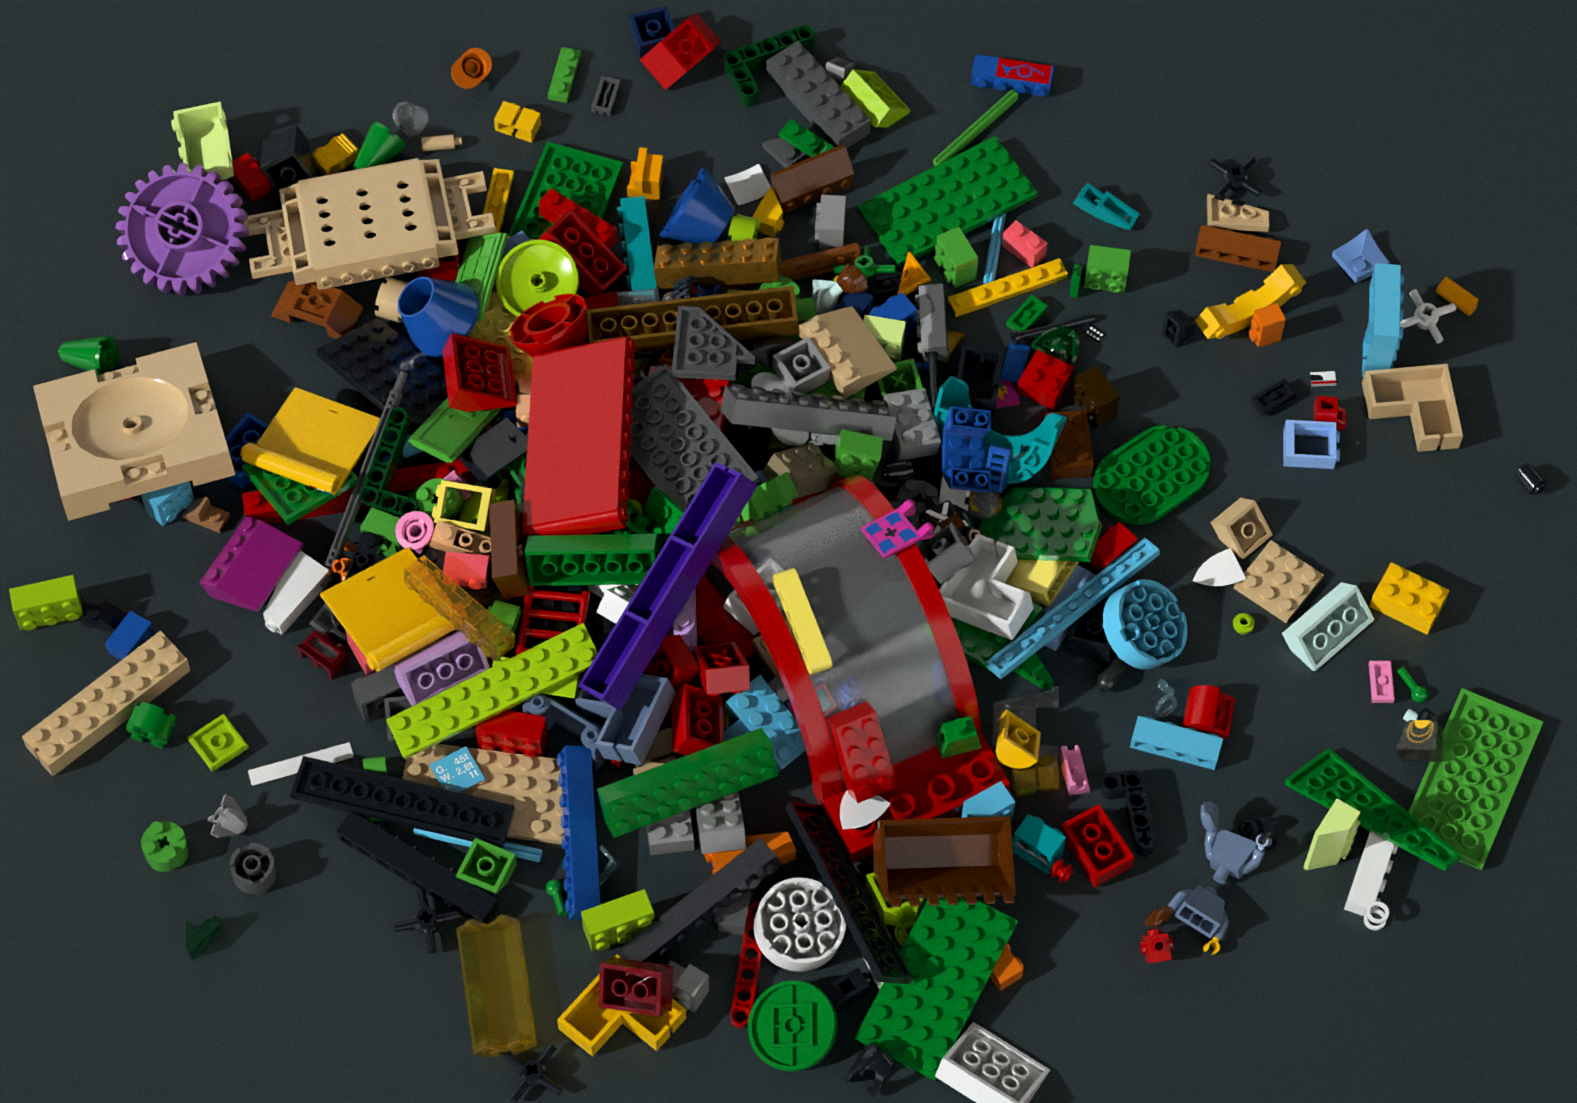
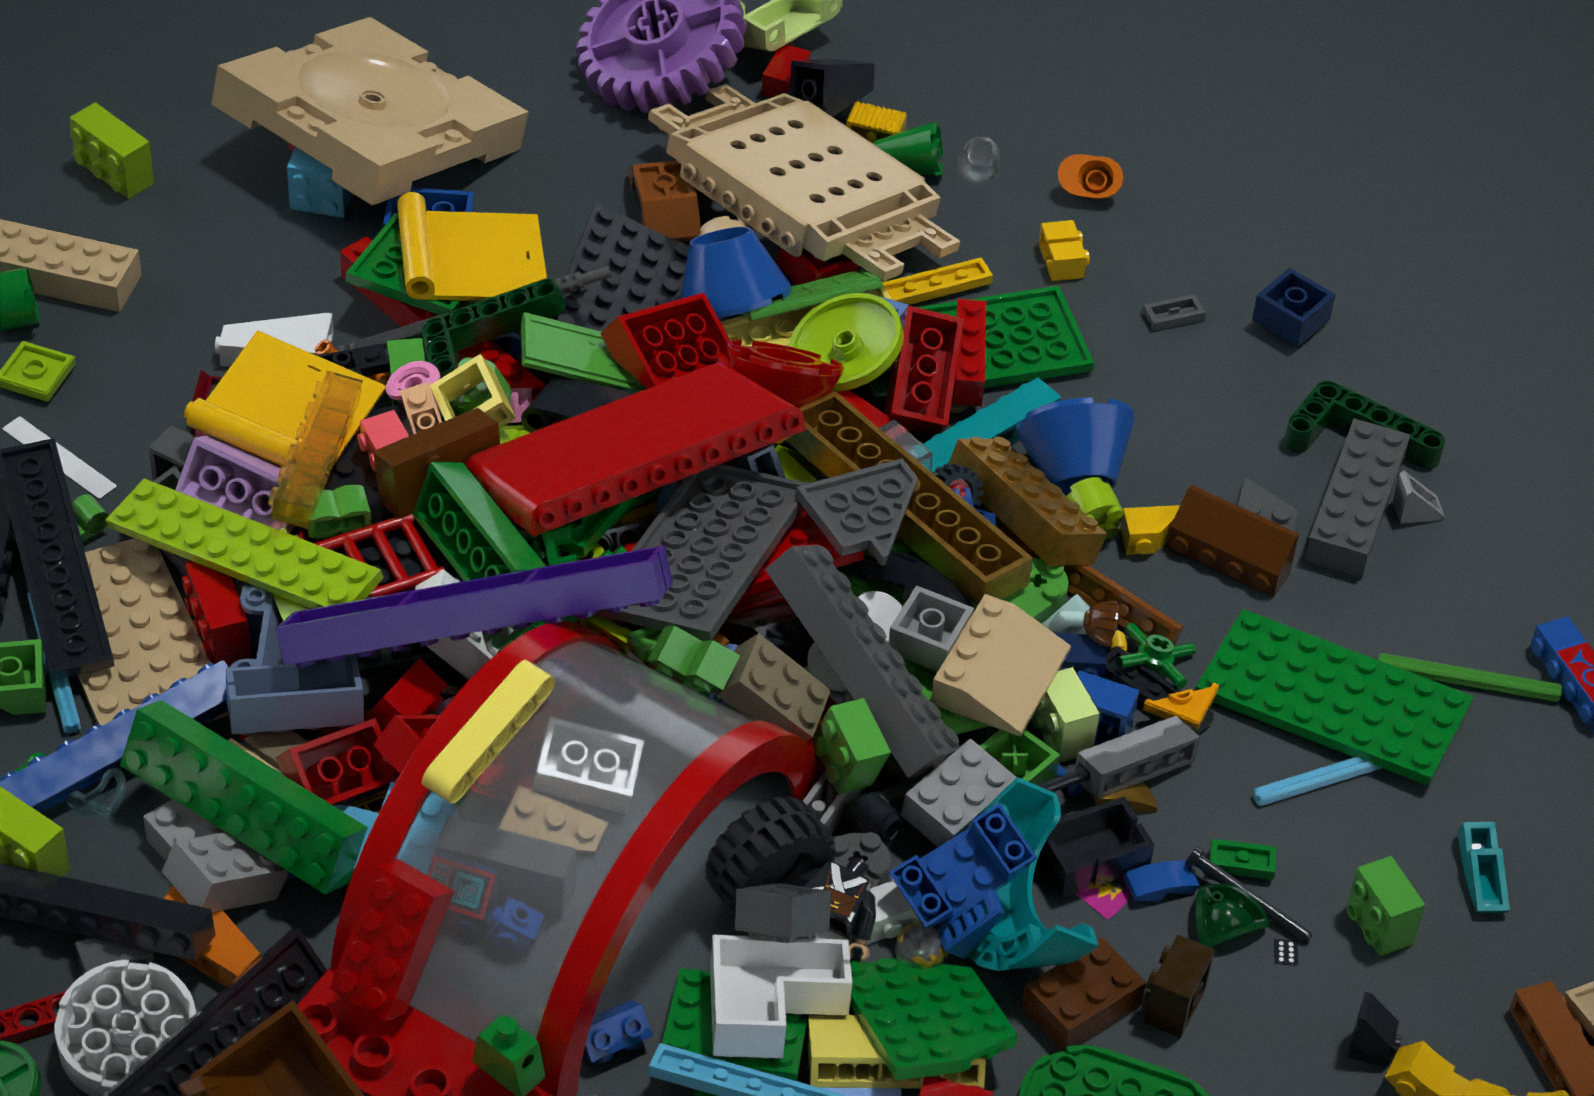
camera: 55 degrees right, 15 degrees down
(91, 354) = (456, 52): green cone -> none
(102, 618) = (134, 212): black slope -> none
(129, 635) = (125, 232): blue brick -> none
(206, 515) = (328, 234): medium nougat slope -> none
(250, 564) = (281, 284): magenta slope -> none
(441, 142) = (974, 201): tan cylinder -> none
(457, 771) = (133, 591): medium azure sticker -> none
(564, 75) = (1166, 264): bright green plate -> none
(646, 176) = (1094, 379): light orange plate -> none
(680, 50) = (1296, 337): red slope -> none
(748, 185) = (1168, 490): white sticker -> none
(803, 139) = (1282, 503): green plate -> none
(830, 222) = (1188, 585): light grey brick -> none
(860, 814) = (332, 1010): white sticker -> none
(874, 98) = (1411, 553): lime slope -> none
(895, 532) = (704, 770): dark pink flag -> none
(956, 257) = (1252, 735): bright green brick -> none
(1007, 287) = (1268, 822): yellow plate -> none
(1024, 244) = (1343, 803): coral brick -> none
(1045, 380) = (1155, 916): red brick -> none
(1075, 280) = (1335, 884): green tile -> none

